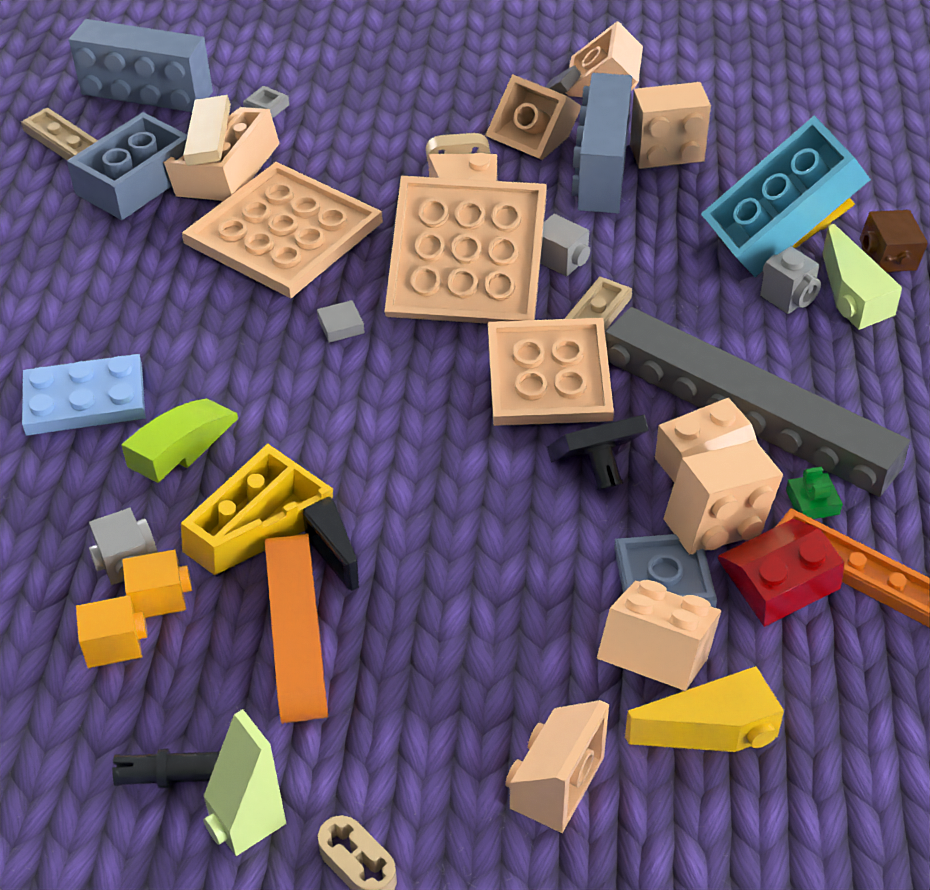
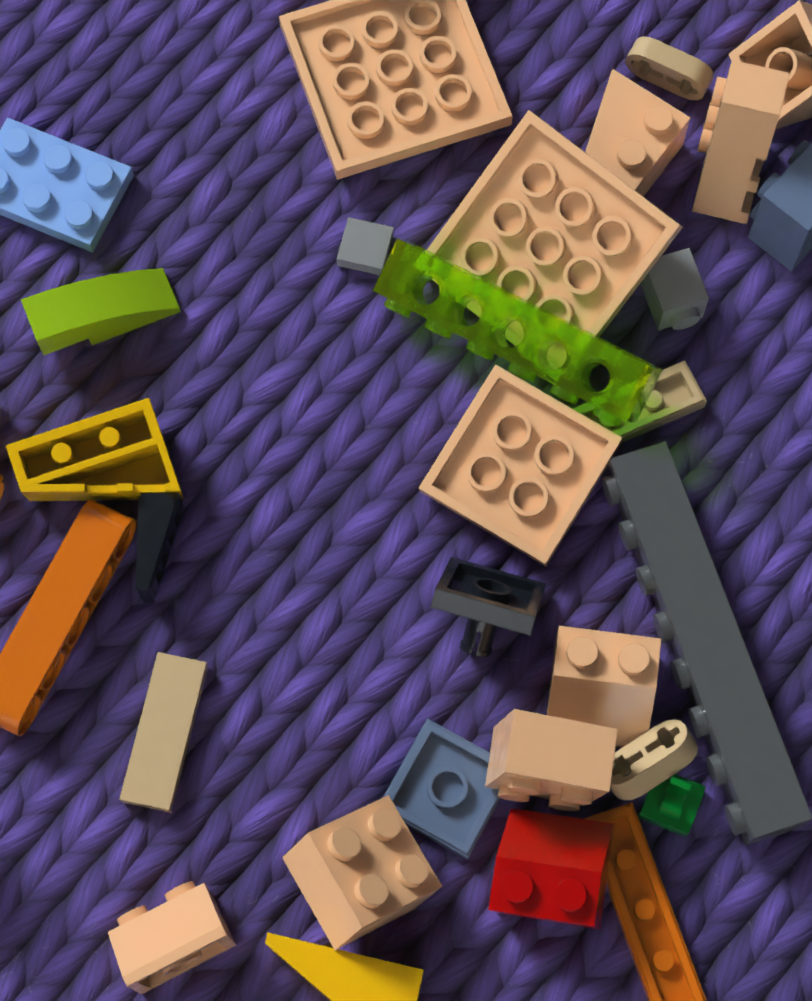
camera: 35 degrees right, 25 degrees up
(436, 655) = (164, 732): none -> tan tile
(467, 288) = (630, 376): none -> clear neon green brick
(534, 140) = (738, 139): none -> light nougat wedge
(791, 461) = (651, 759): none -> tan beam

